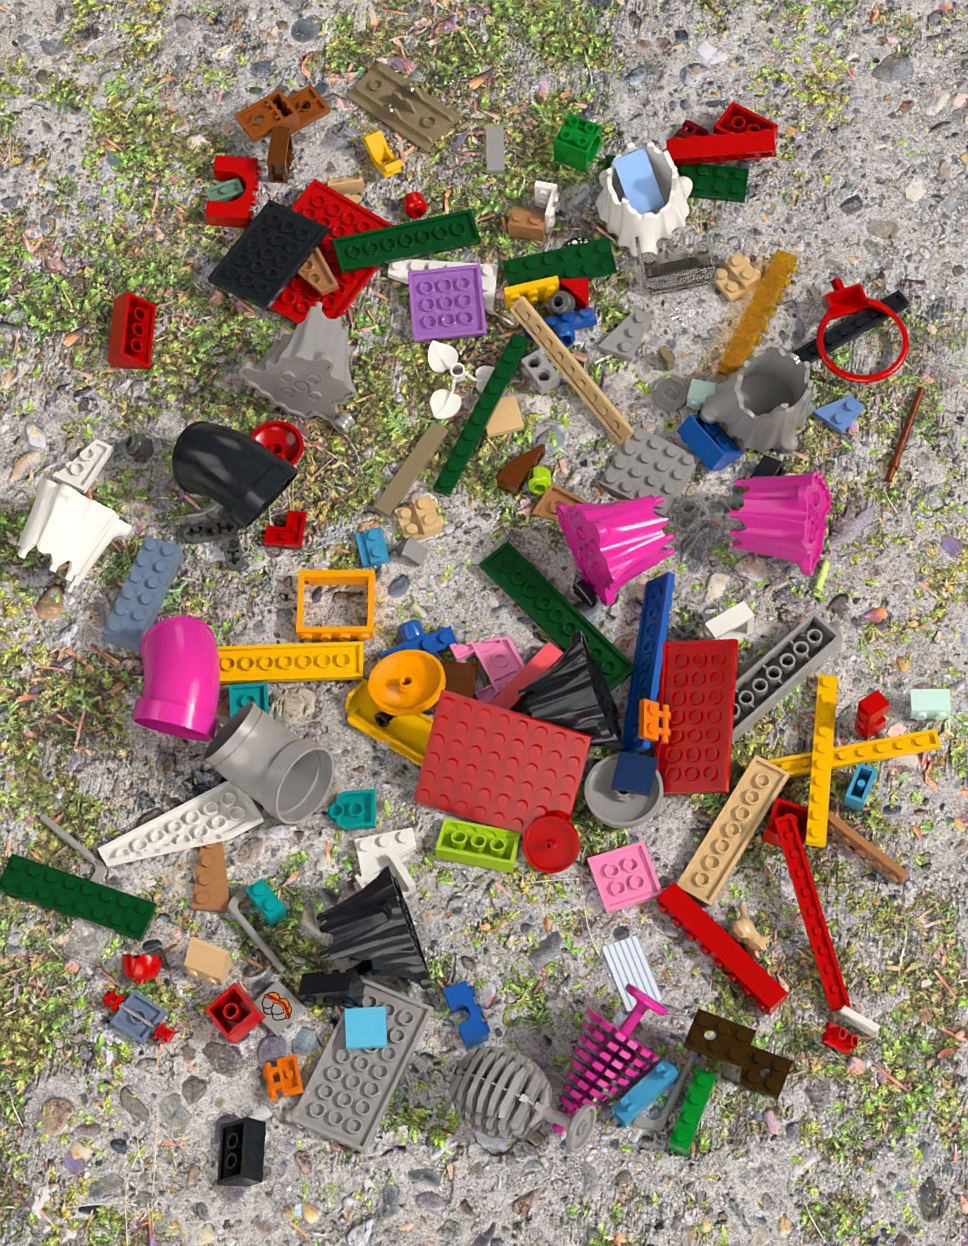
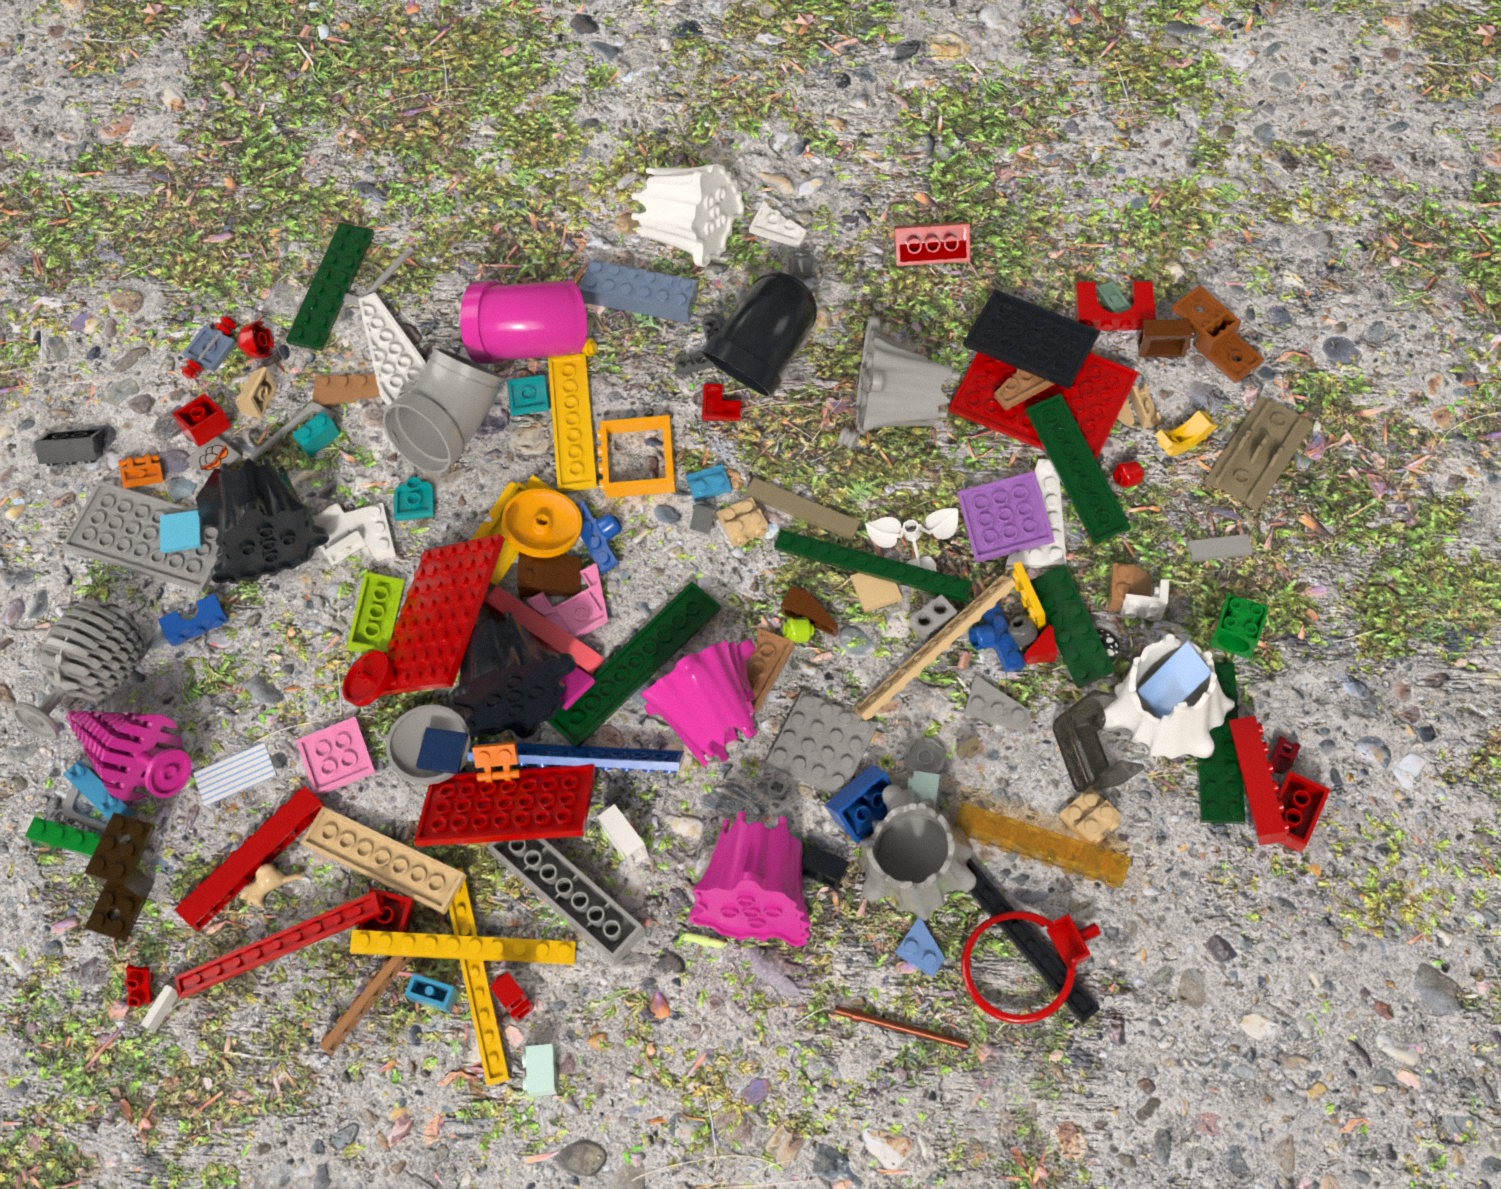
camera: 85 degrees right, 0 degrees up
(281, 437) = (811, 370): red dish -> none

